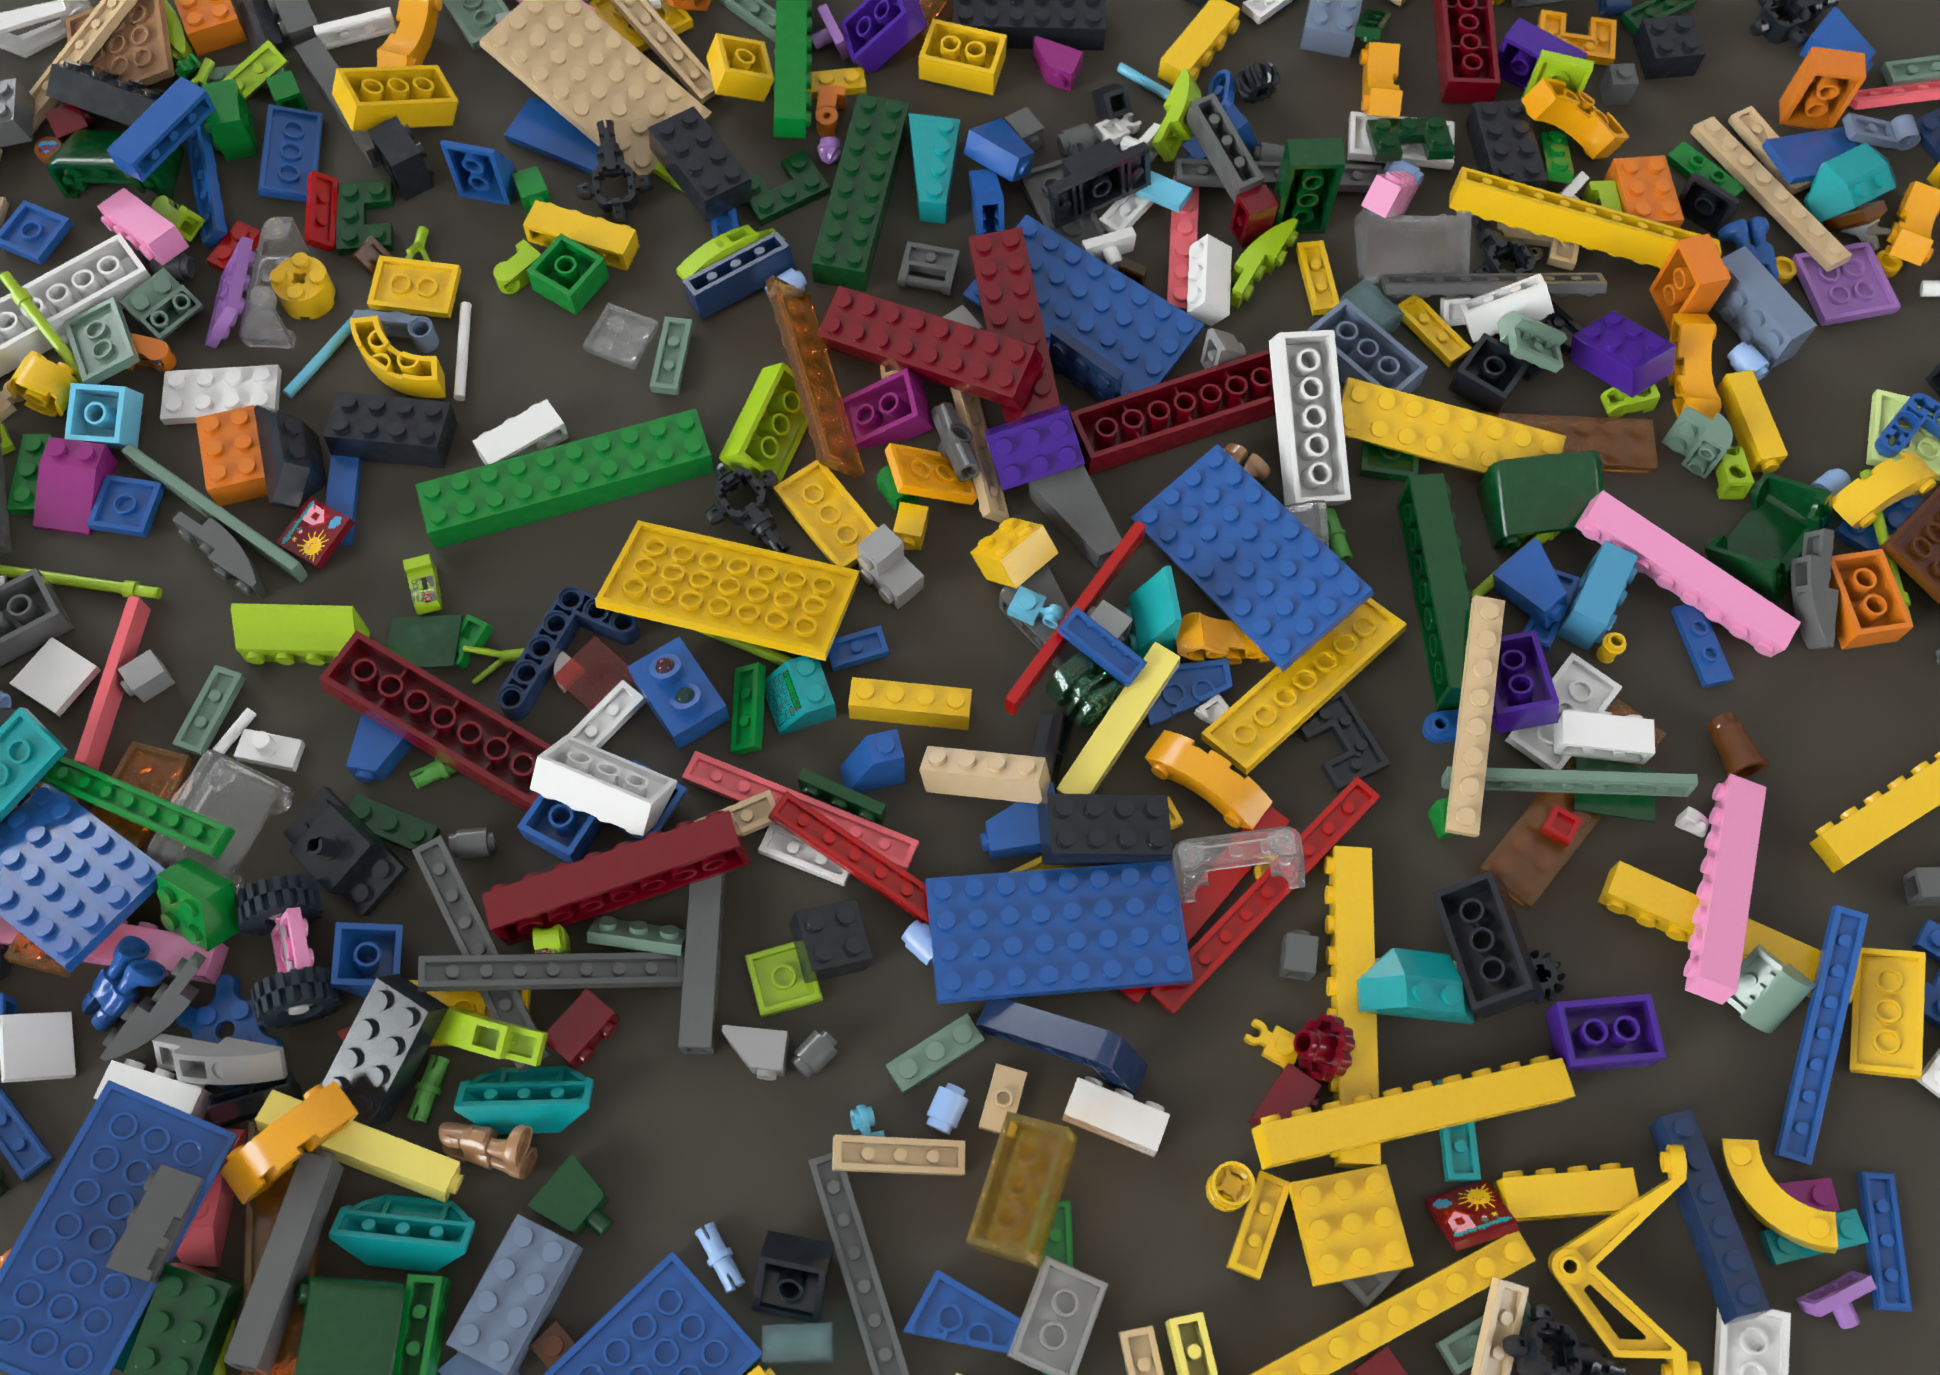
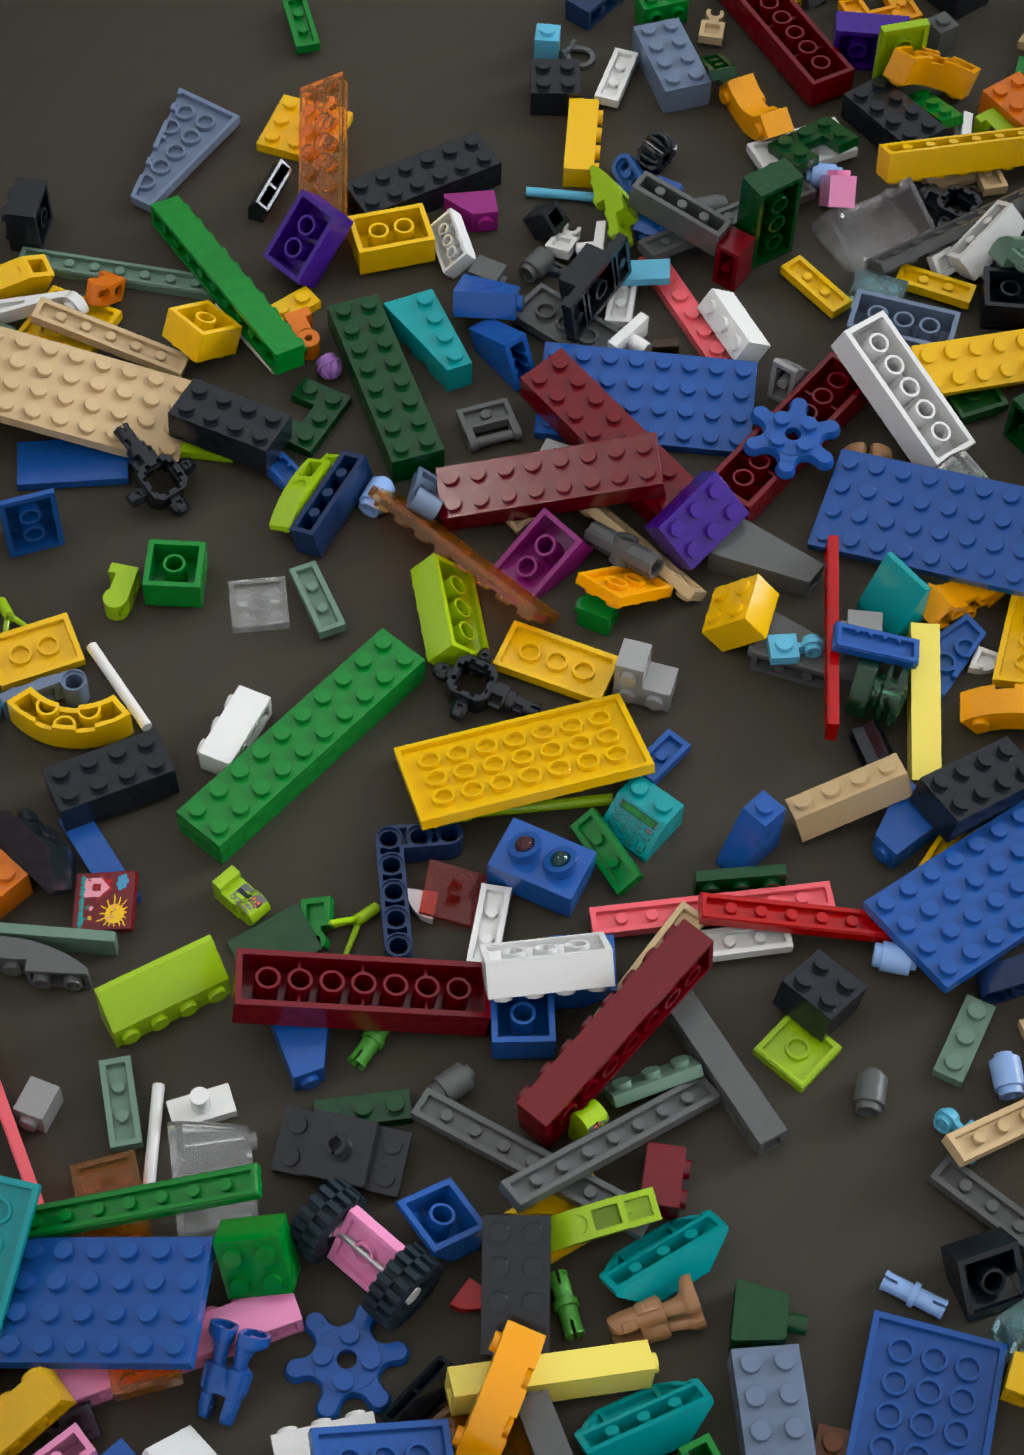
camera: 30 degrees left, 10 degrees down
(154, 1014) = (277, 1385): dark grey slope -> none
(224, 1063) = (371, 1381): light grey slope -> none
(530, 187) = (82, 519): green brick -> none
(609, 240) = (128, 539): yellow brick -> none
(760, 1049) = (823, 1114): light grey slope -> none
(813, 307) = (423, 495): none -> sand blue plate
(830, 33) = (258, 268): medium lavender tile -> none
(910, 703) = (740, 777): yellow brick -> none
(911, 525) = (633, 628): yellow brick -> none
(1013, 85) = (452, 243): none -> white piece
(1084, 366) = (691, 439): dark blue plate -> none
(1179, 428) = (792, 452): none -> blue plate
(1261, 257) = (761, 290): lime slope -> none

